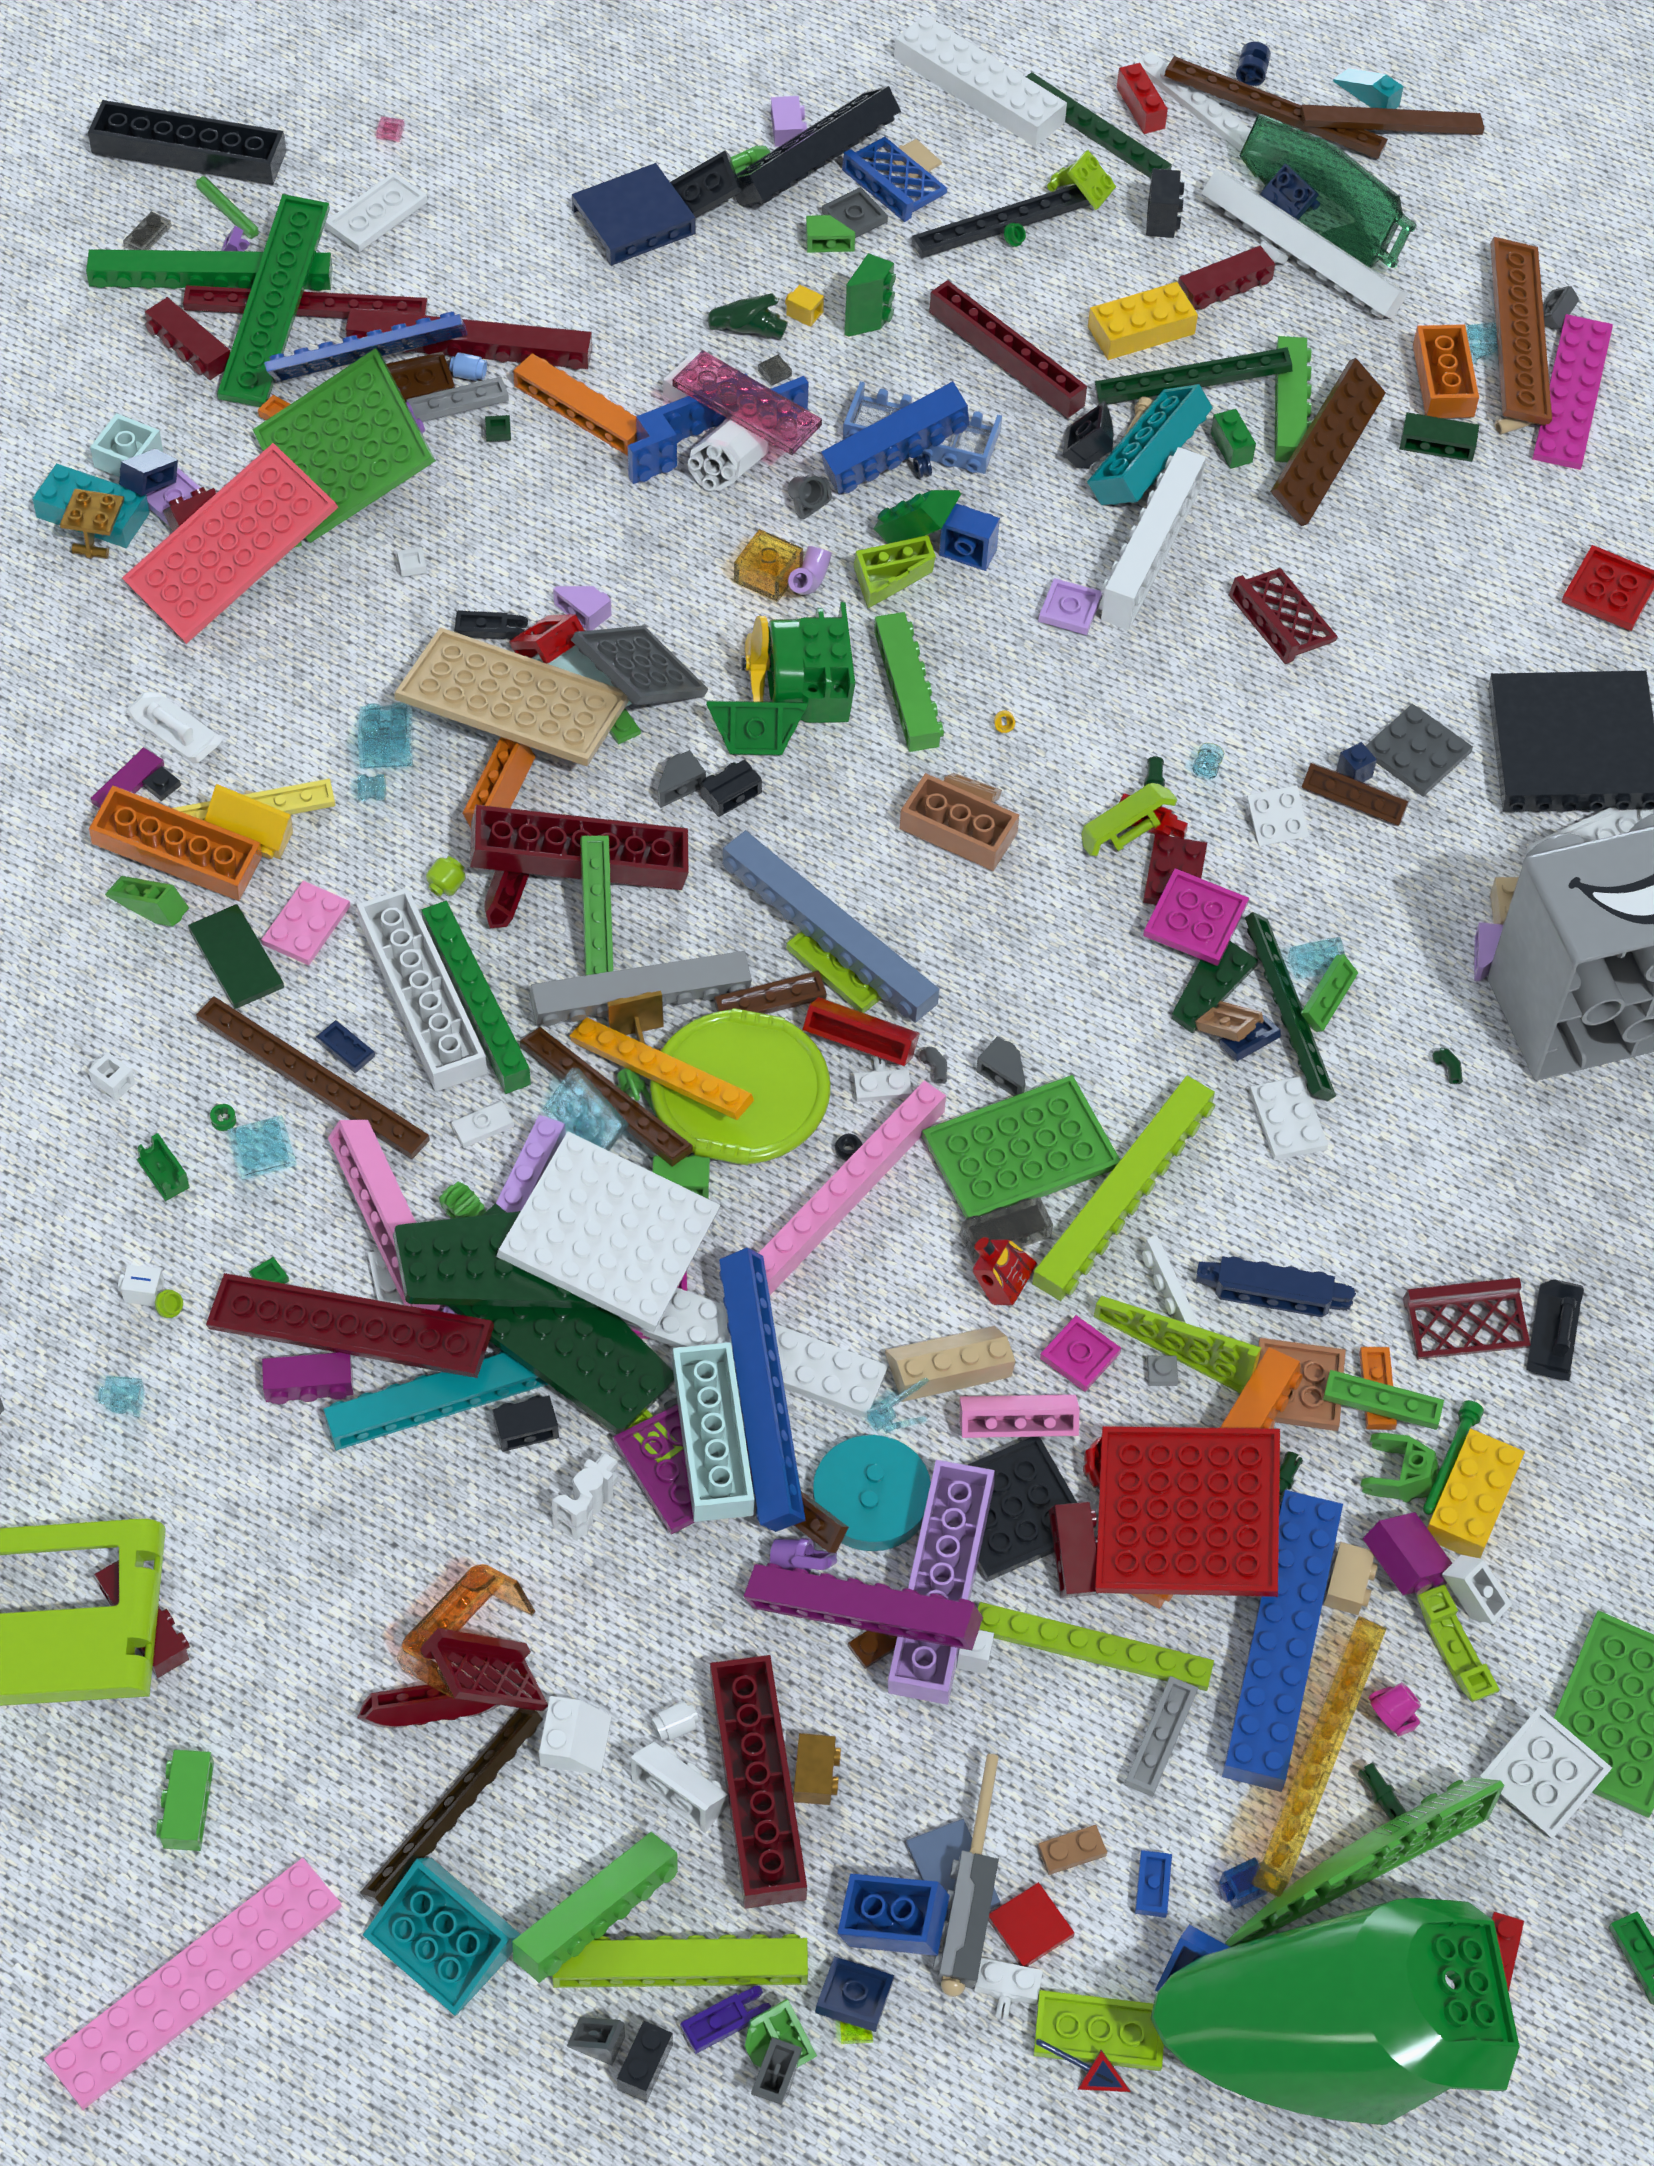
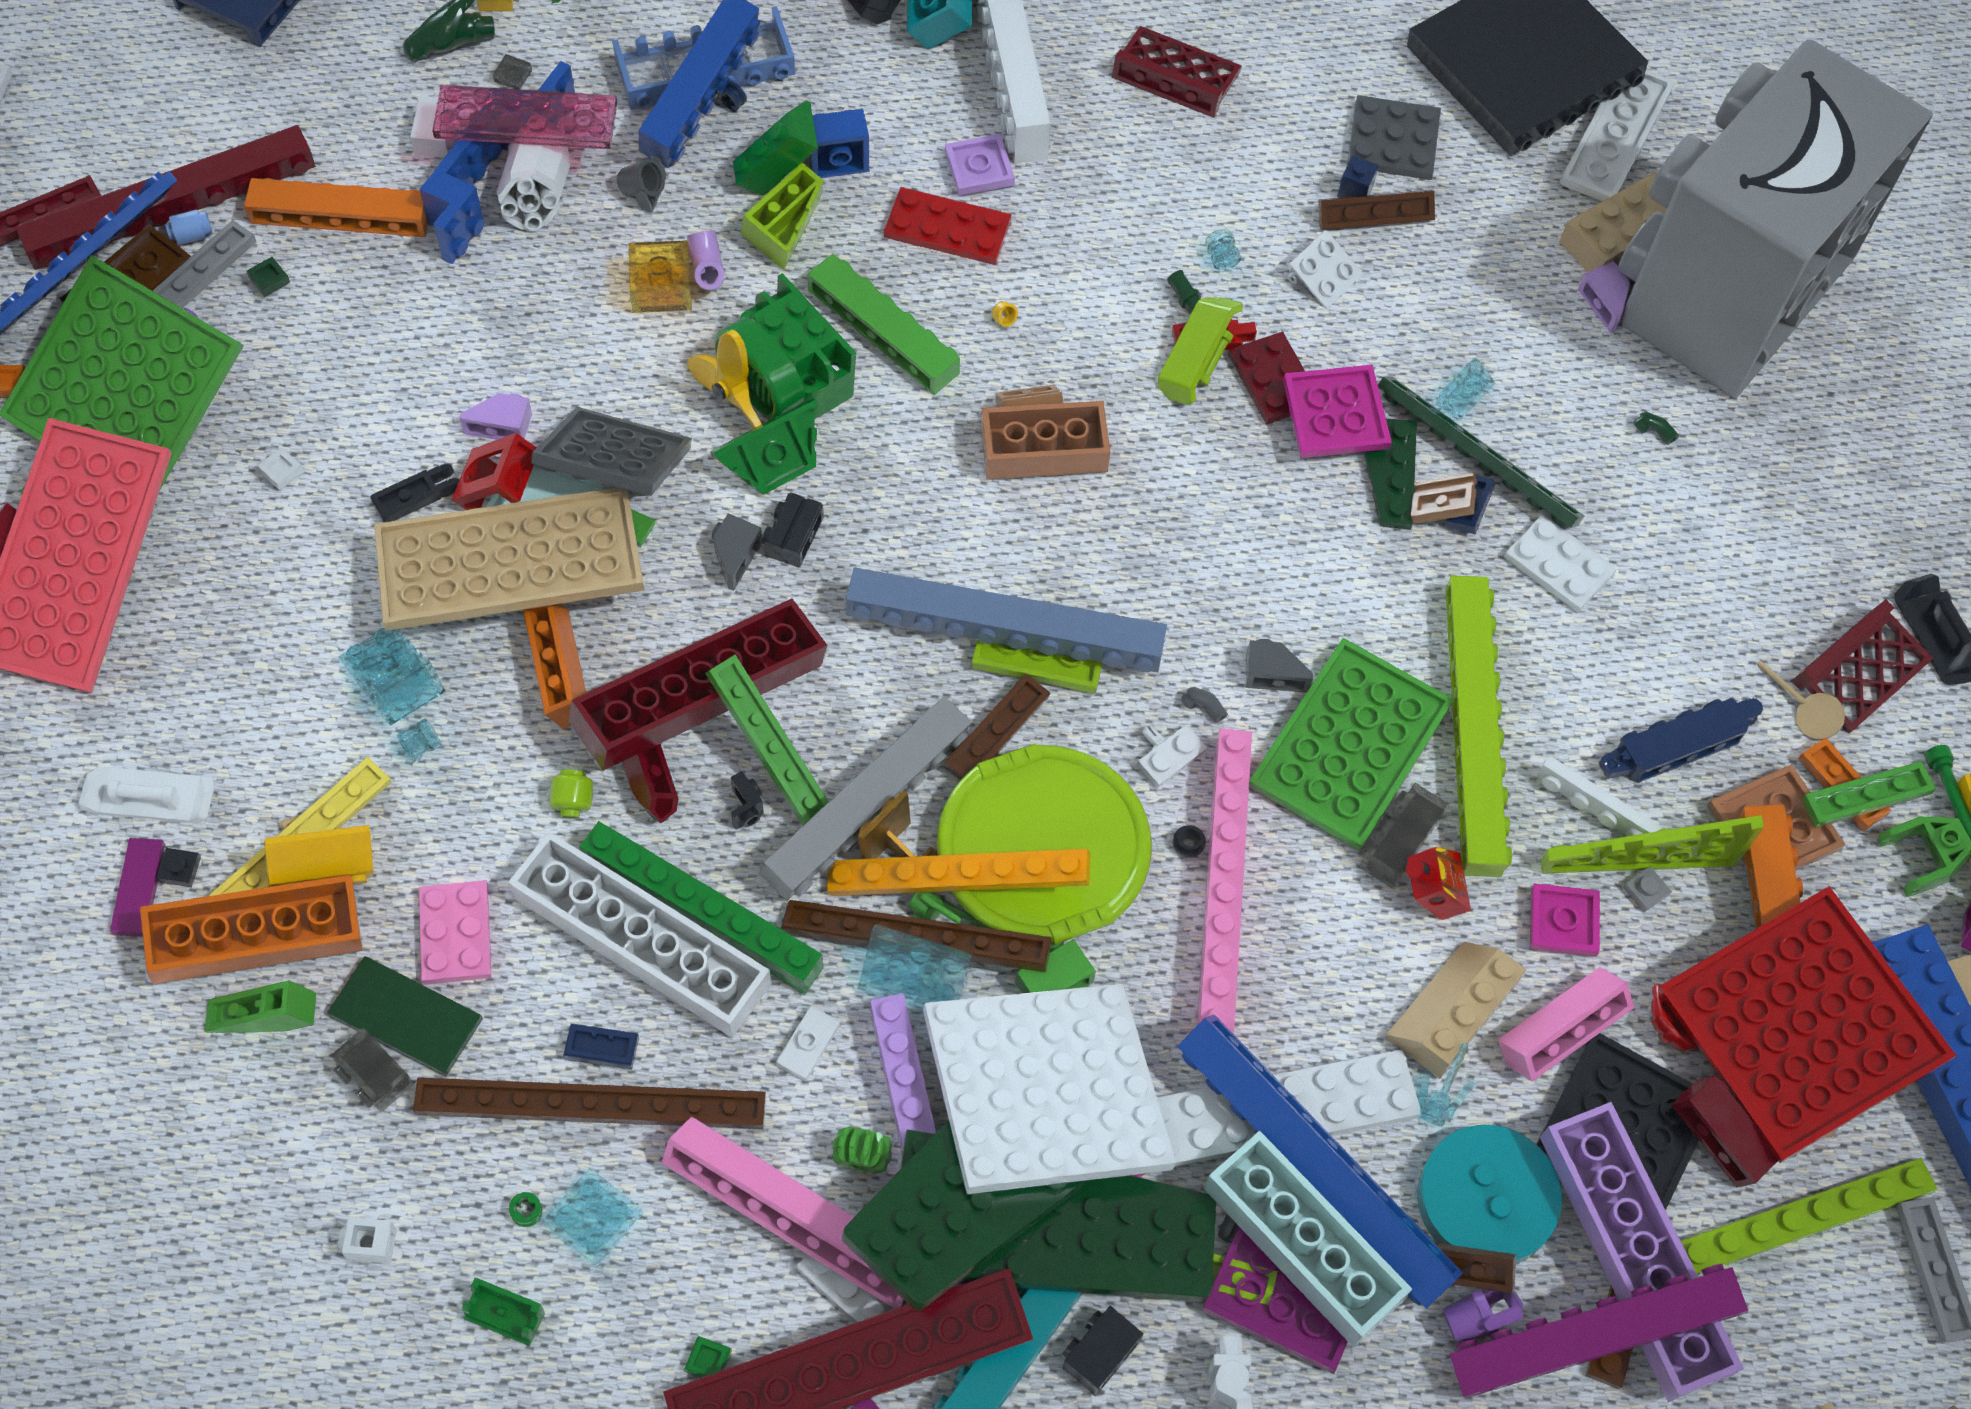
camera: 35 degrees left, 5 degrees up
(188, 975) = (371, 1071): none -> clear smoke brick
(558, 954) = (749, 795): none -> black bracket
(861, 1031) = (1115, 712): red brick -> none
(1013, 638) = (947, 225): none -> red plate
(1329, 993) = (1504, 418): bright green plate -> none
(1400, 1329) = (1818, 714): none -> tan piece

